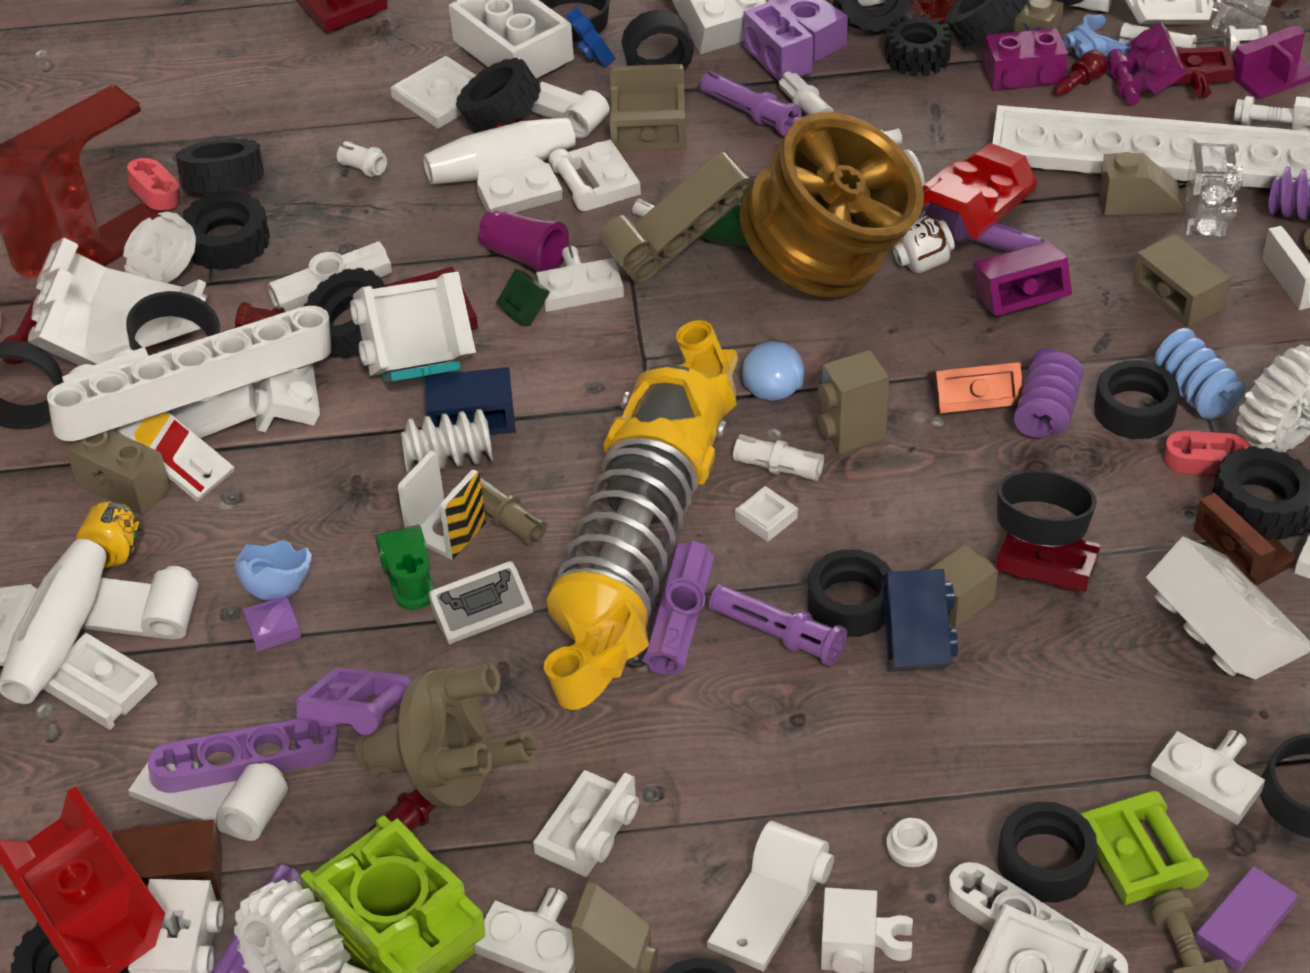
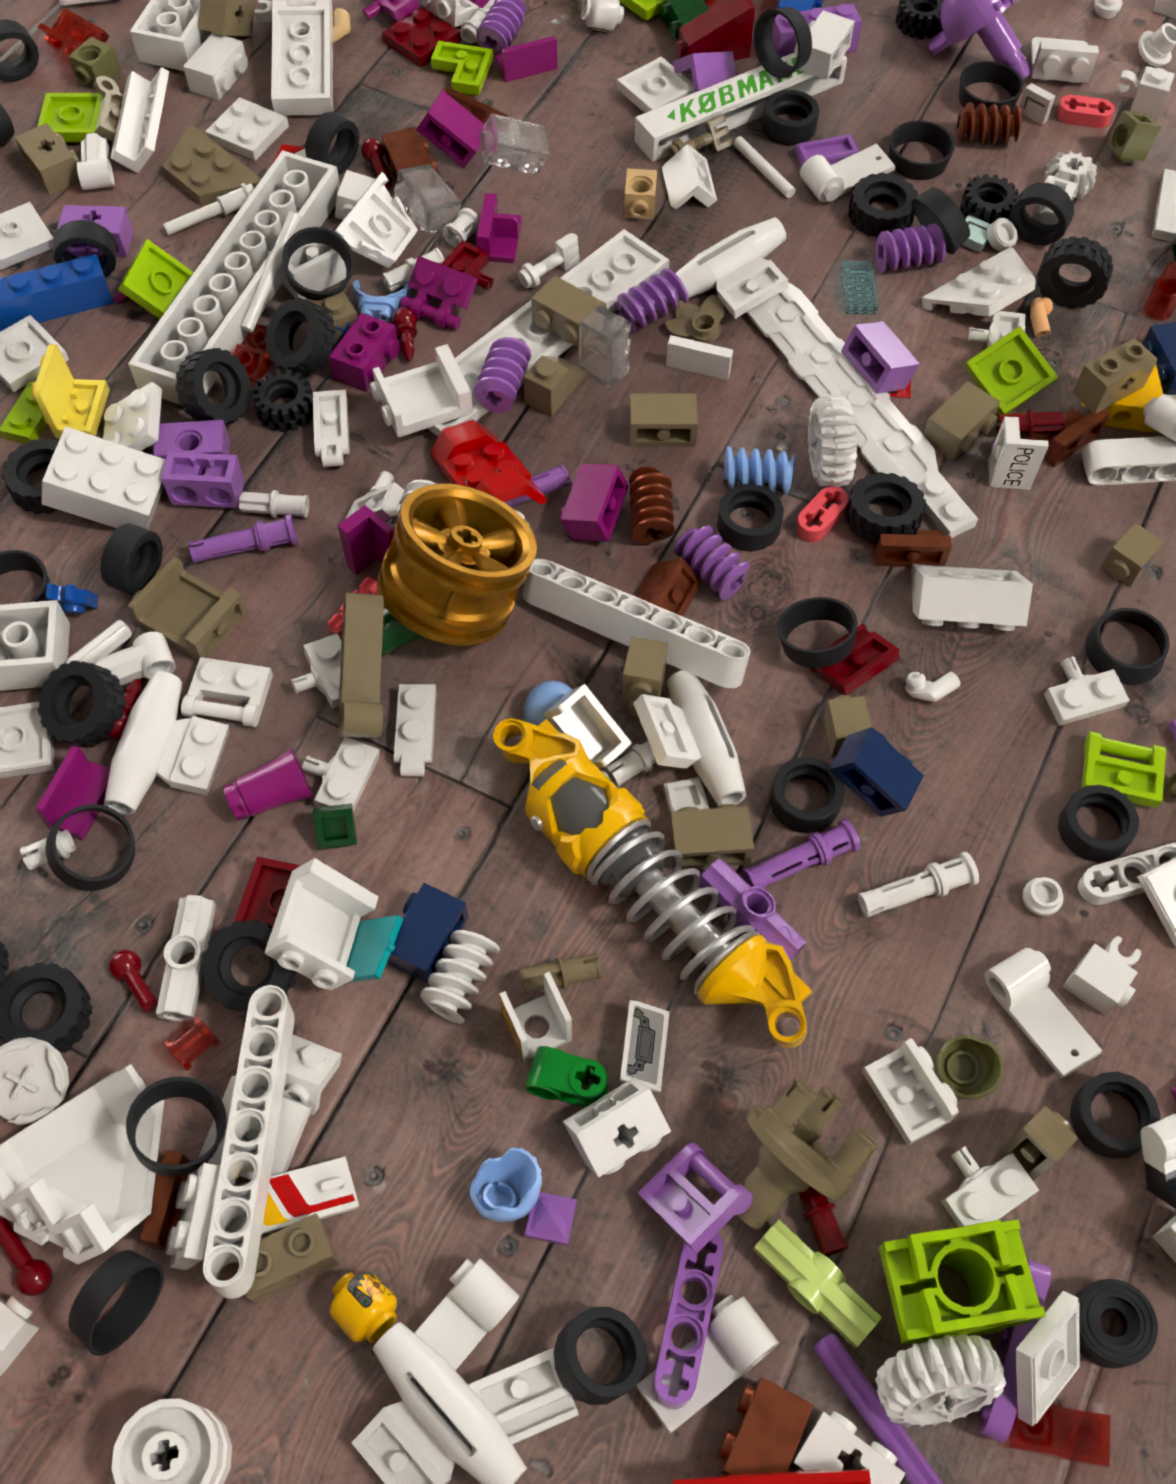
camera: 60 degrees left, 15 degrees up
(160, 669) = (629, 1341): none -> black tyre
(297, 258) = (126, 968): none -> dark red bar
(344, 815) = (817, 1283): none -> yellowish green piece
(356, 607) = (596, 1131): none -> white brick
(381, 205) = (81, 882): none -> black tyre
(413, 135) = (74, 785): none -> magenta panel
(573, 83) = (103, 643): none -> white axle
(650, 855) = (969, 1066): none -> olive hair
(668, 300) = (415, 728): none -> white hinge
(742, 545) = (711, 835): none -> dark tan brick
(762, 390) = (586, 719): none -> white panel
(832, 476) = (691, 732): none -> white plate
(846, 739) = (935, 880): none -> white pin
(914, 372) = (624, 616): none -> white beam
(922, 85) = (331, 426): none -> white hinge
(1011, 110) = (423, 395): none -> white panel
(1064, 318) = (651, 505): none -> copper piece
(1076, 637) = (920, 688): none -> white arm
(1089, 137) = (502, 374): none -> medium lavender piece
(1219, 126) = (561, 308): none -> dark tan brick

